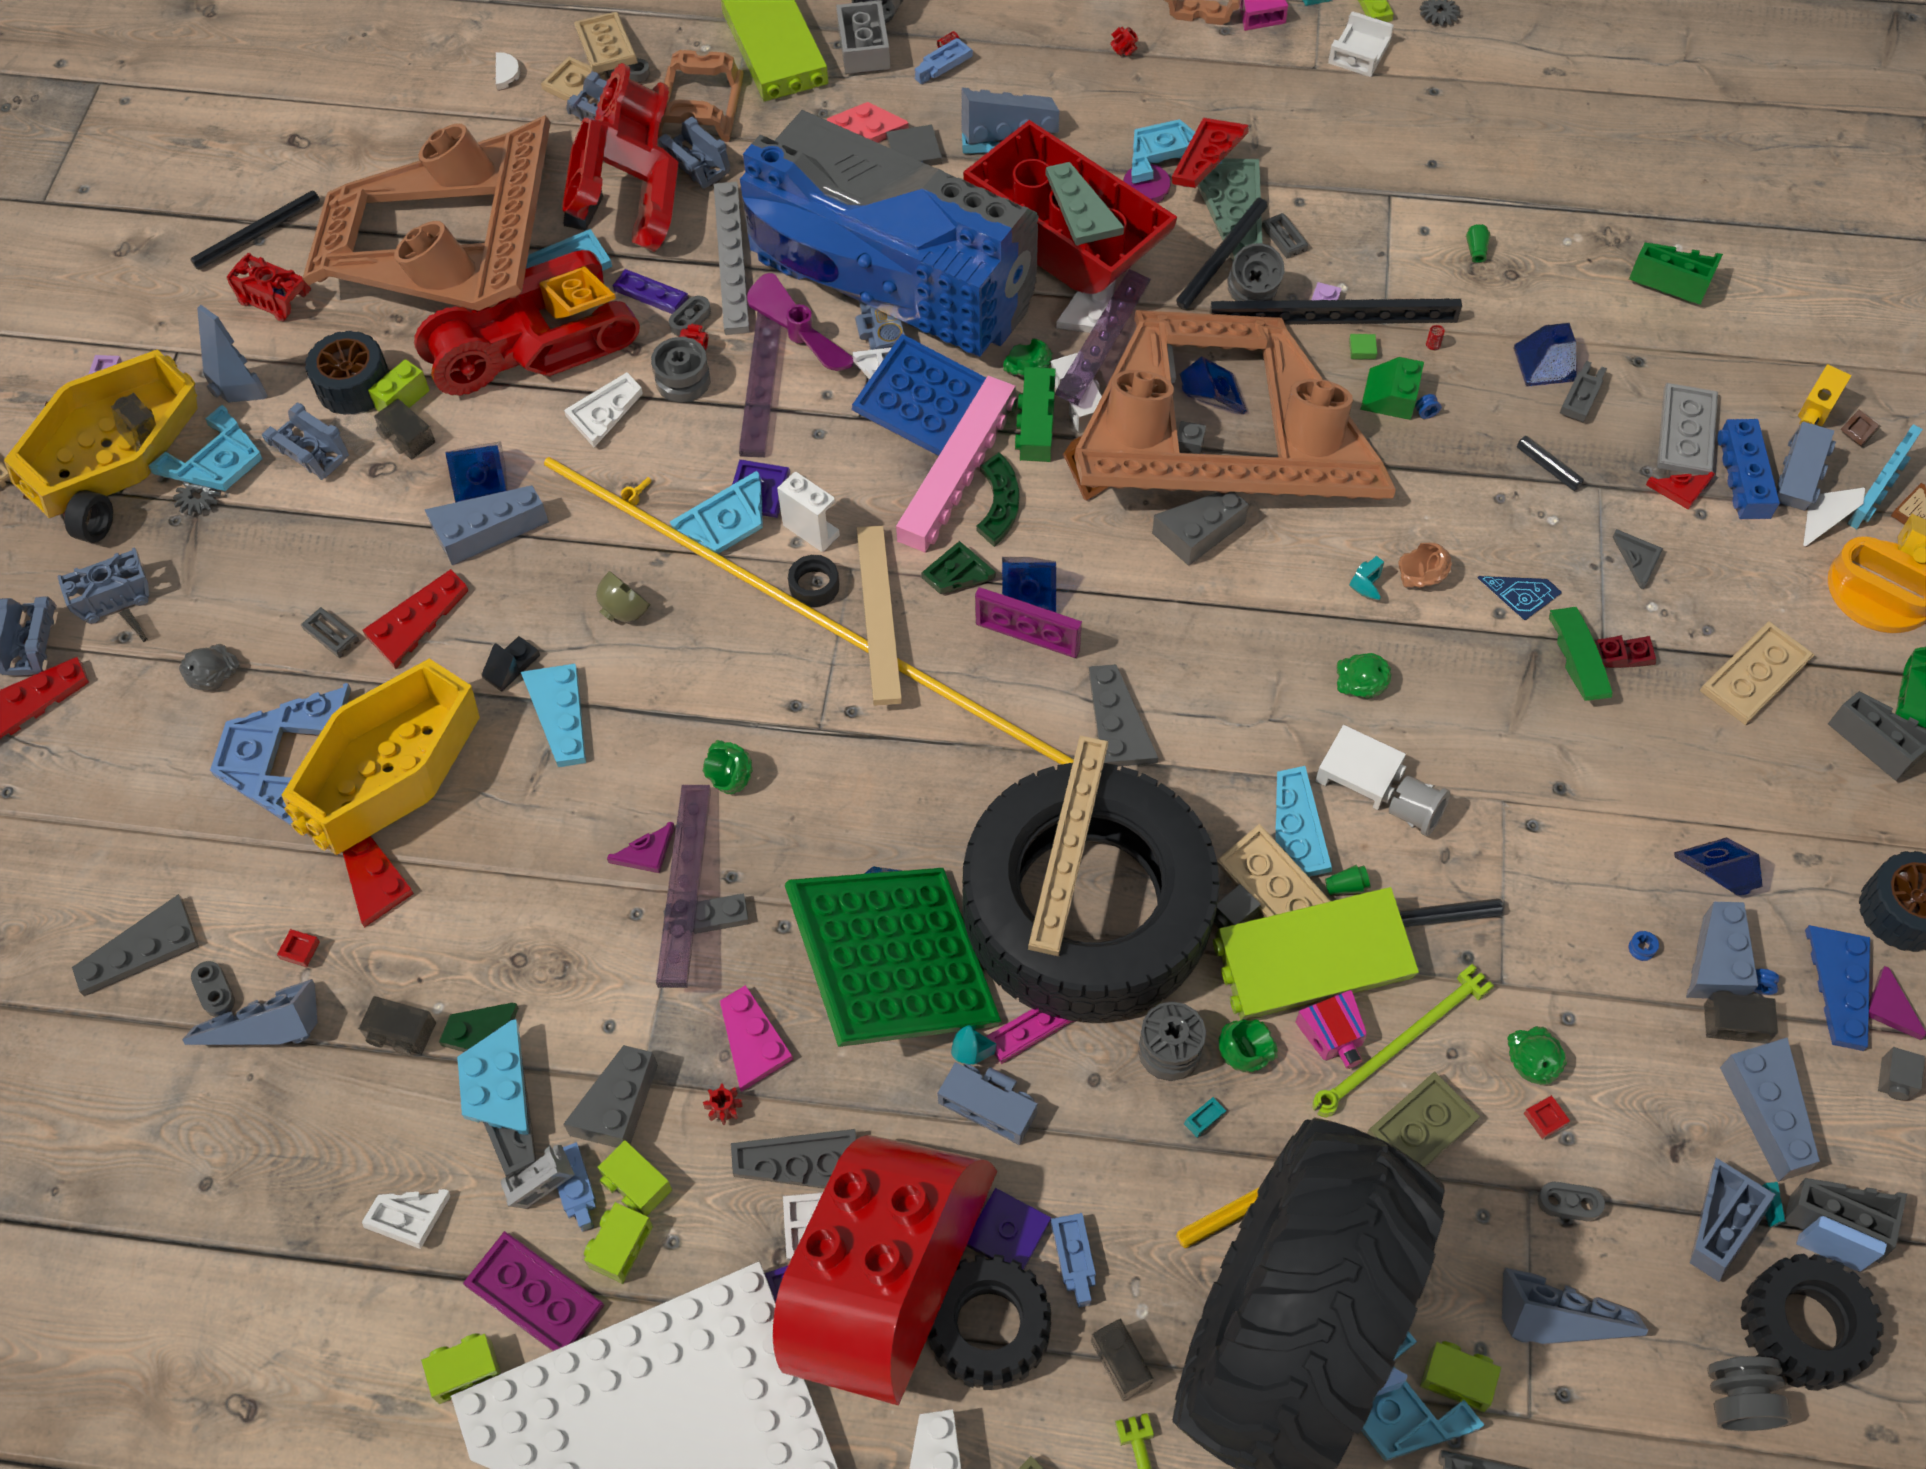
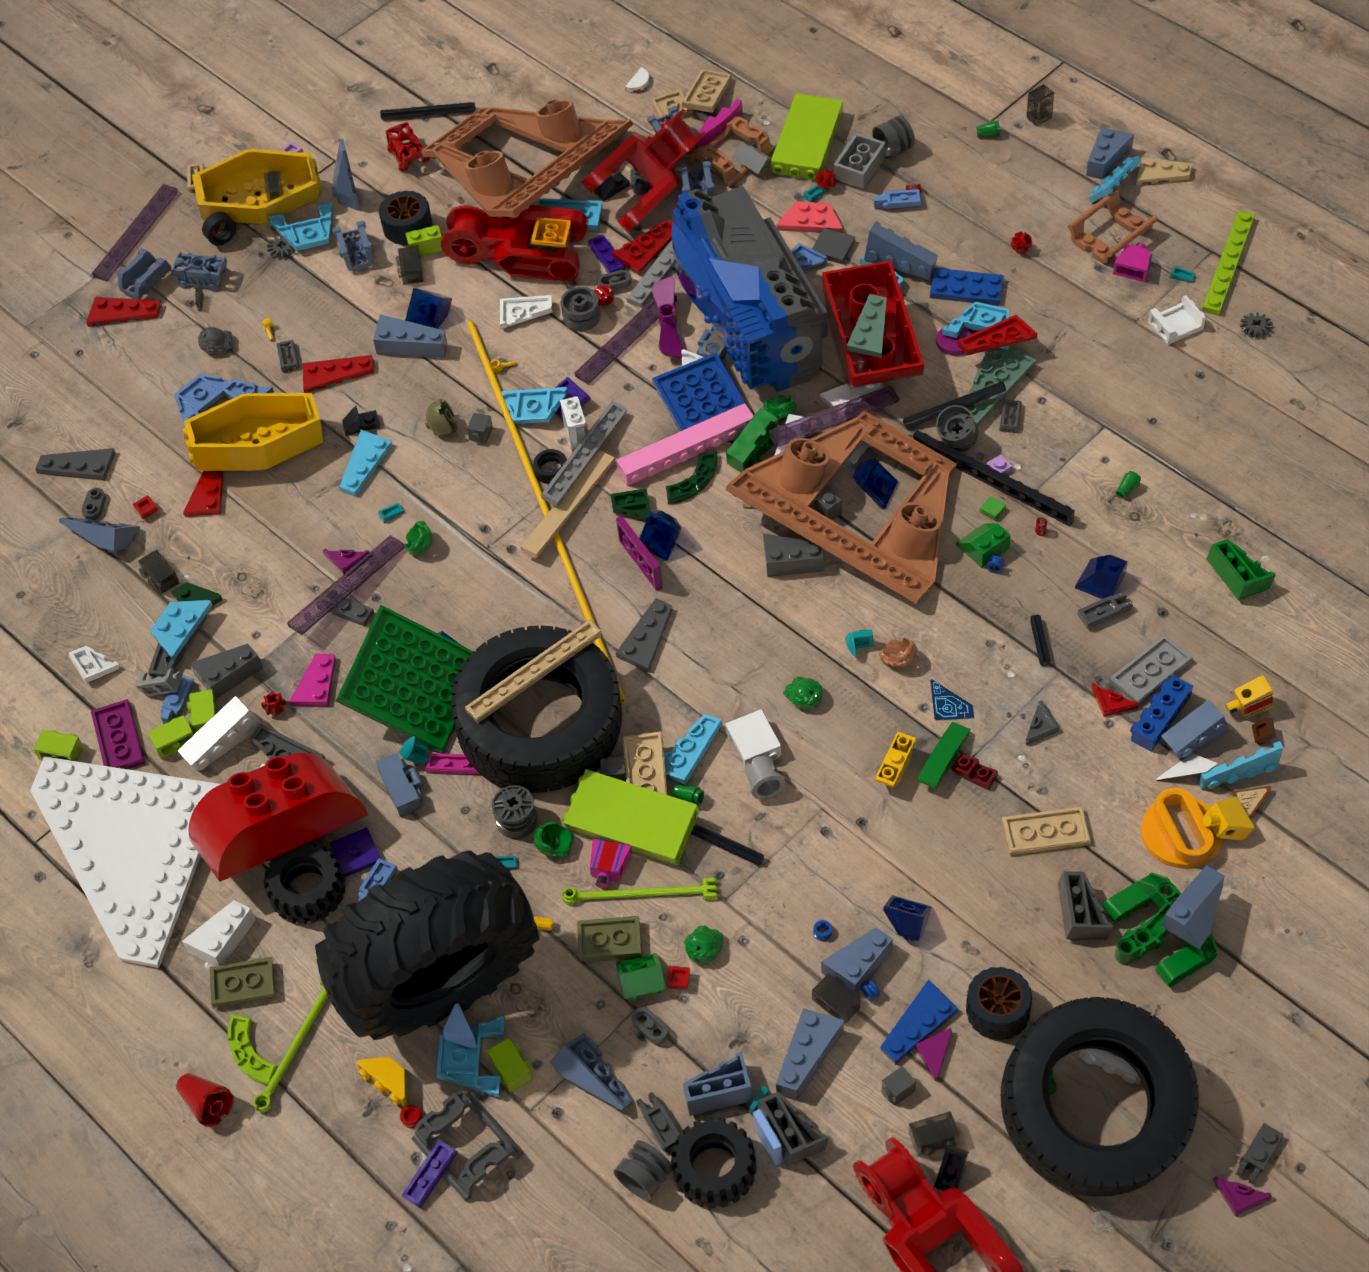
camera: 40 degrees right, 5 degrees down
(265, 608) = (267, 324): none -> yellow hand
(614, 185) = (639, 185): none -> dark grey plate
(653, 756) = (390, 512): none -> teal piece
(657, 63) = (715, 126): none -> dark pink slope
(680, 583) = (479, 427): none -> dark grey brick
(688, 1197) = (220, 734): none -> white wedge
(693, 257) = (645, 247): none -> red wing
(732, 92) = (752, 158): none -> light grey hinge
(836, 100) = (813, 193): none -> teal piece
(841, 76) = (826, 179): none -> red gear
(847, 543) = (583, 453): none -> light grey plate
(1106, 119) = (966, 286): none -> blue plate
(1504, 1145) = (640, 976): none -> green slope
(1541, 692) = (896, 760): none -> yellow slope
(1695, 1317) = (659, 1122): none -> dark grey hinge

